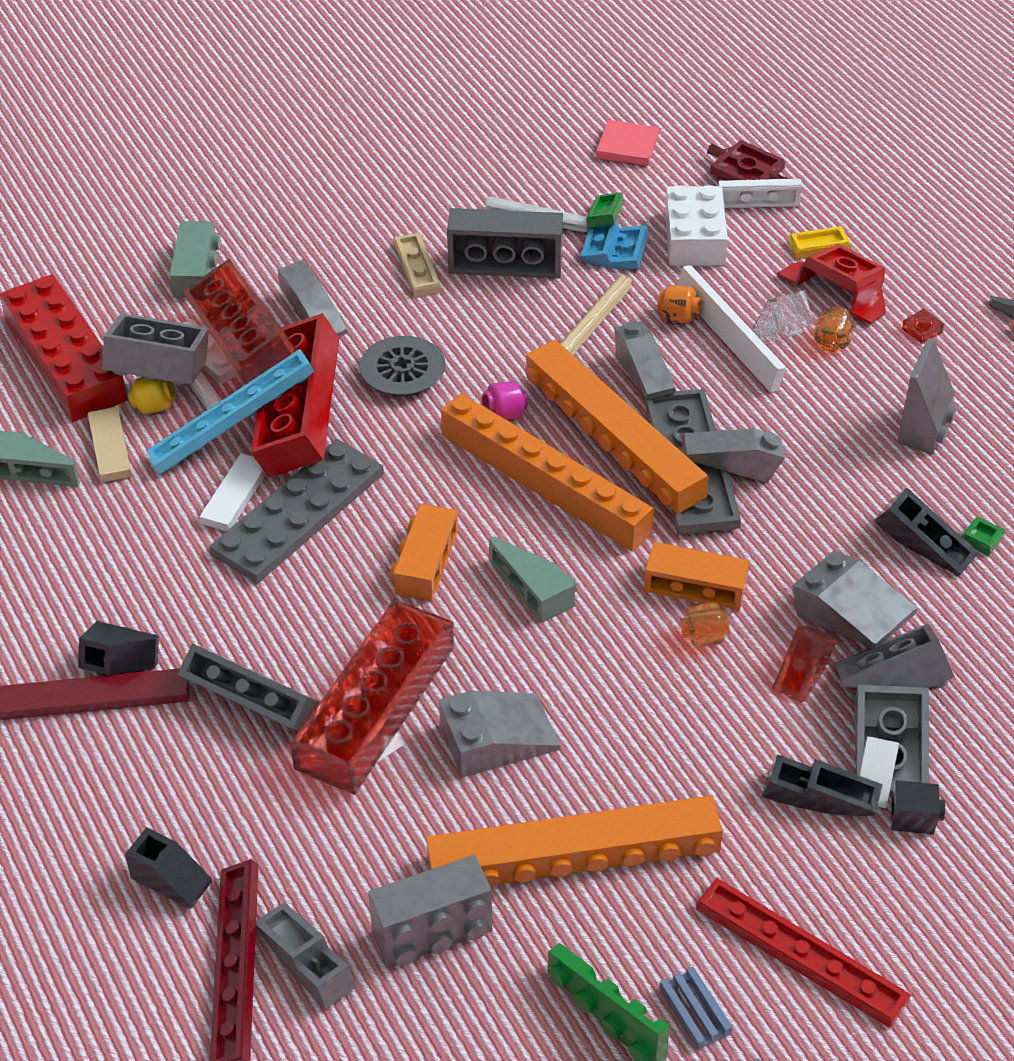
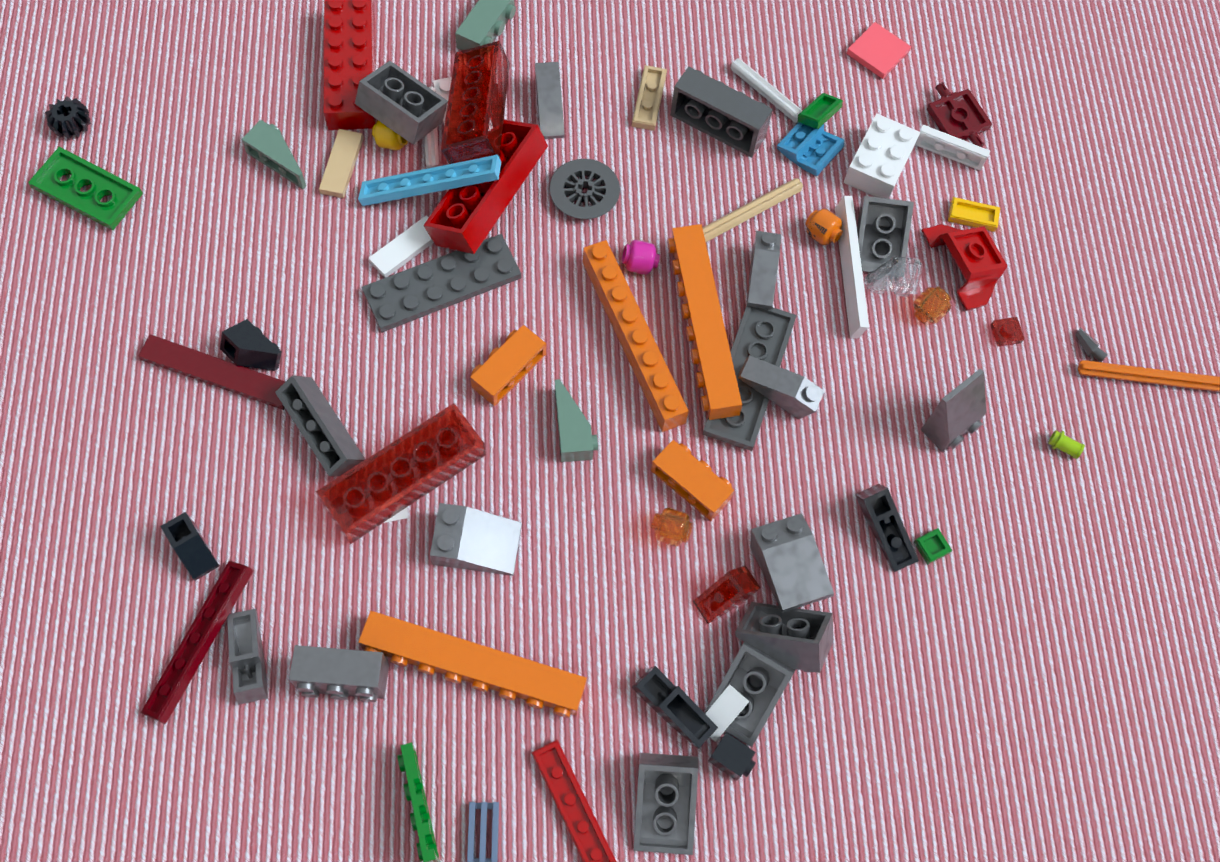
camera: 20 degrees right, 20 degrees up
(740, 279) = (883, 230): none -> flat silver slope
(877, 882) = (666, 803): none -> flat silver slope

